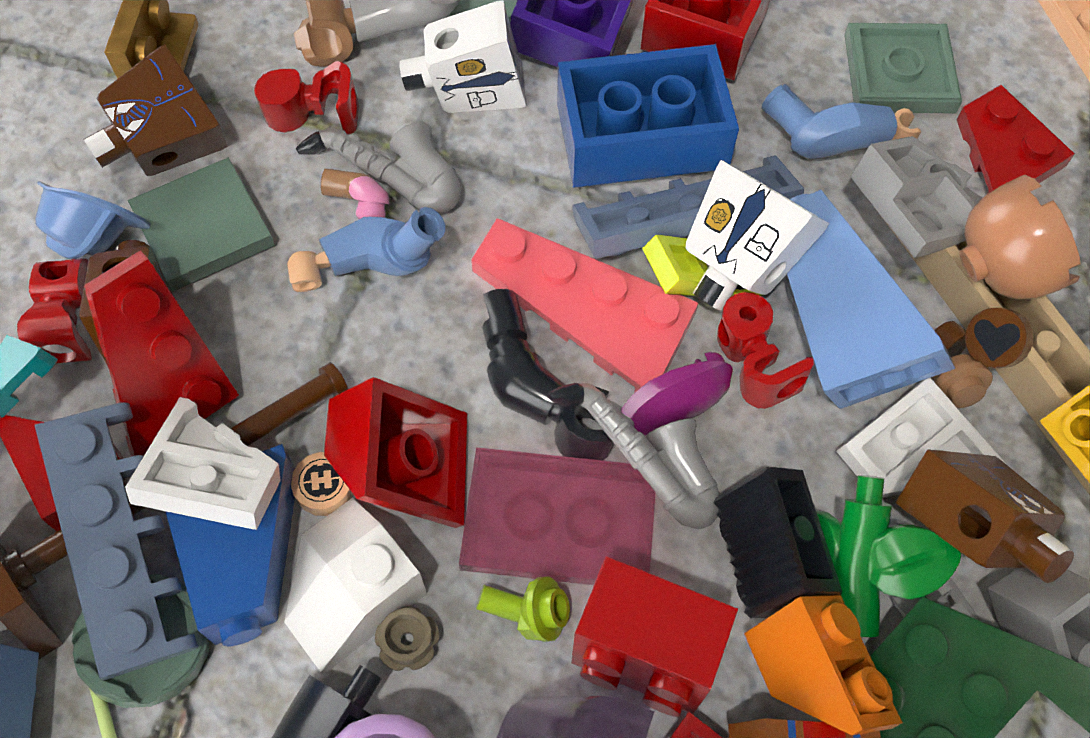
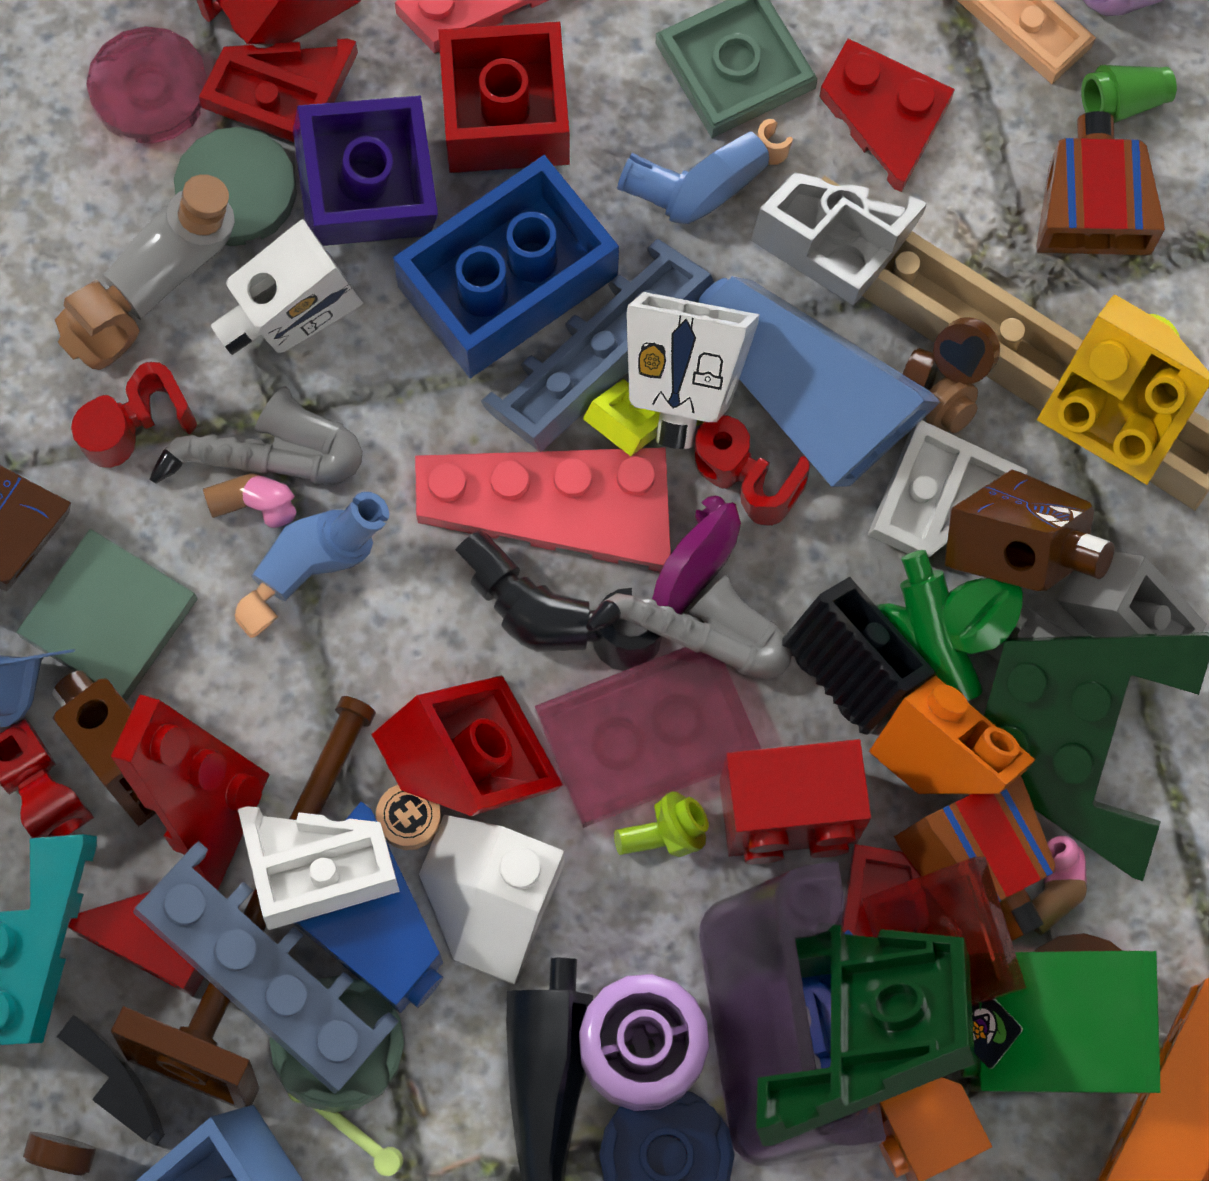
camera: 30 degrees left, 10 degrees up
(401, 622) = (587, 901): dark tan plate -> none
(1019, 243) = (942, 254): nougat cylinder -> none

